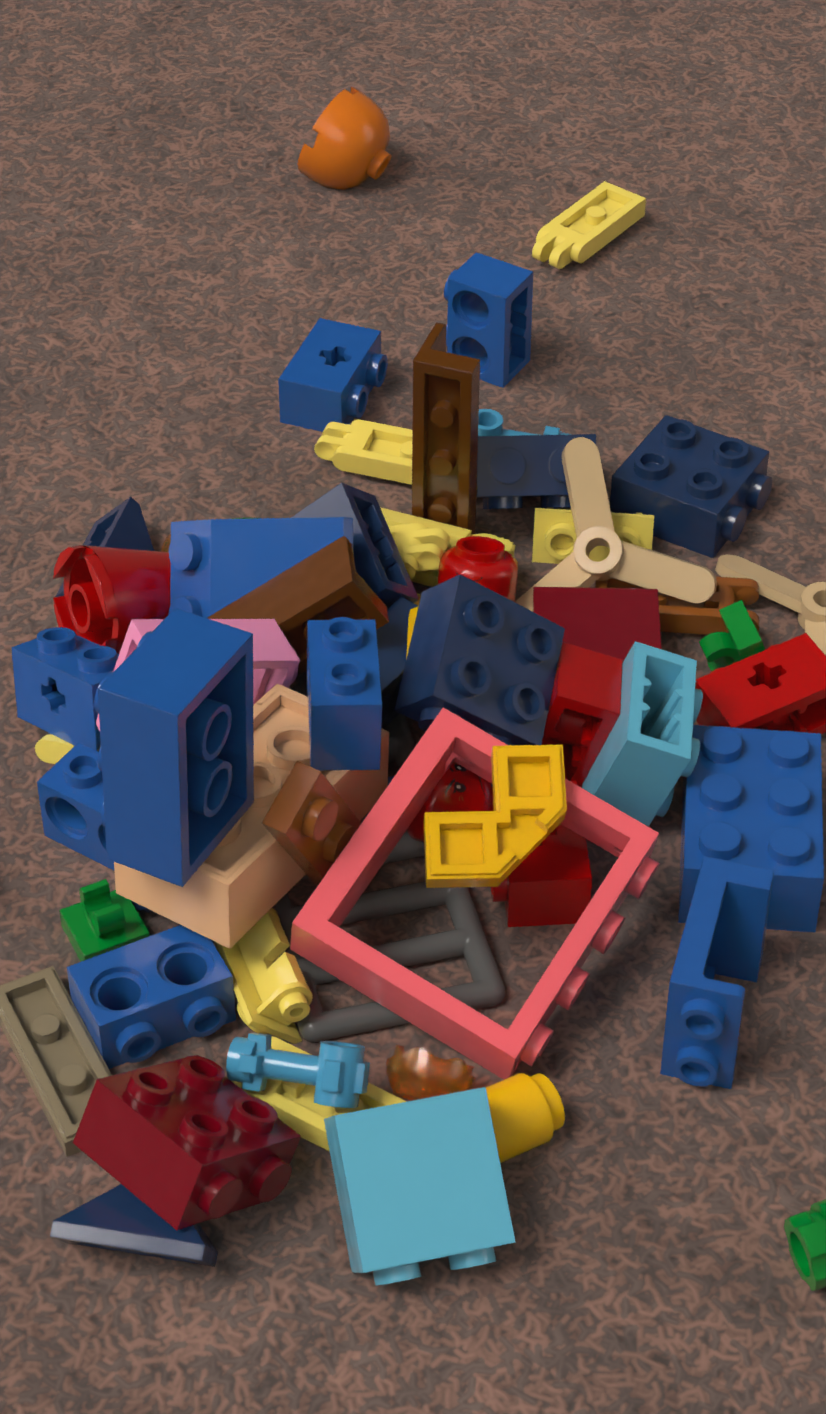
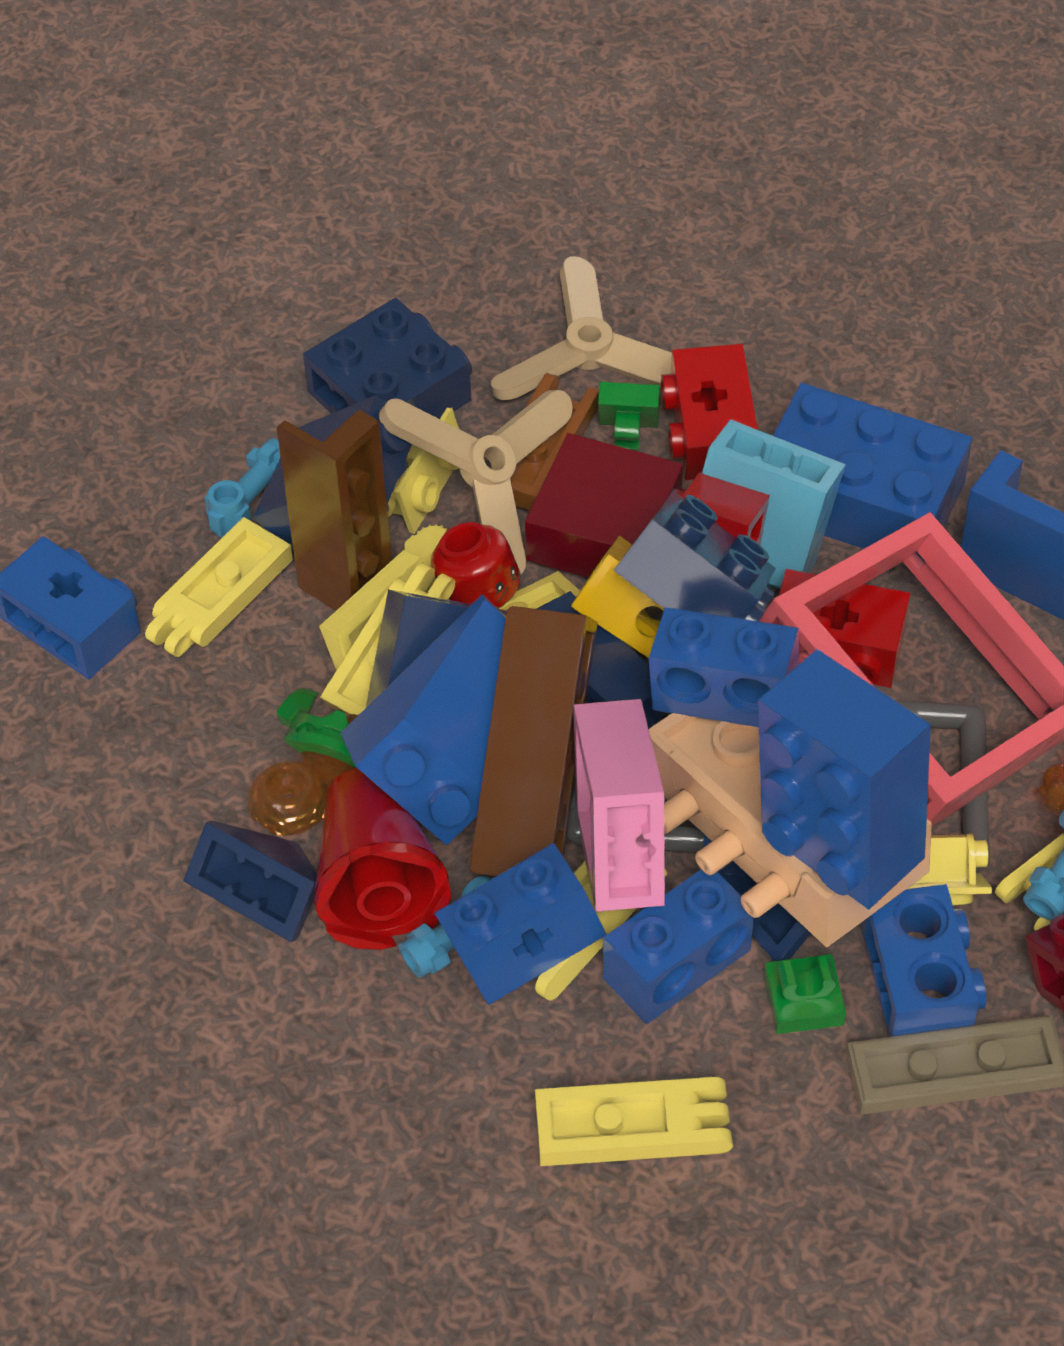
camera: 70 degrees left, 10 degrees up
(490, 316) = (75, 442): blue brick -> none
(490, 845) = (915, 636): yellow tile -> none

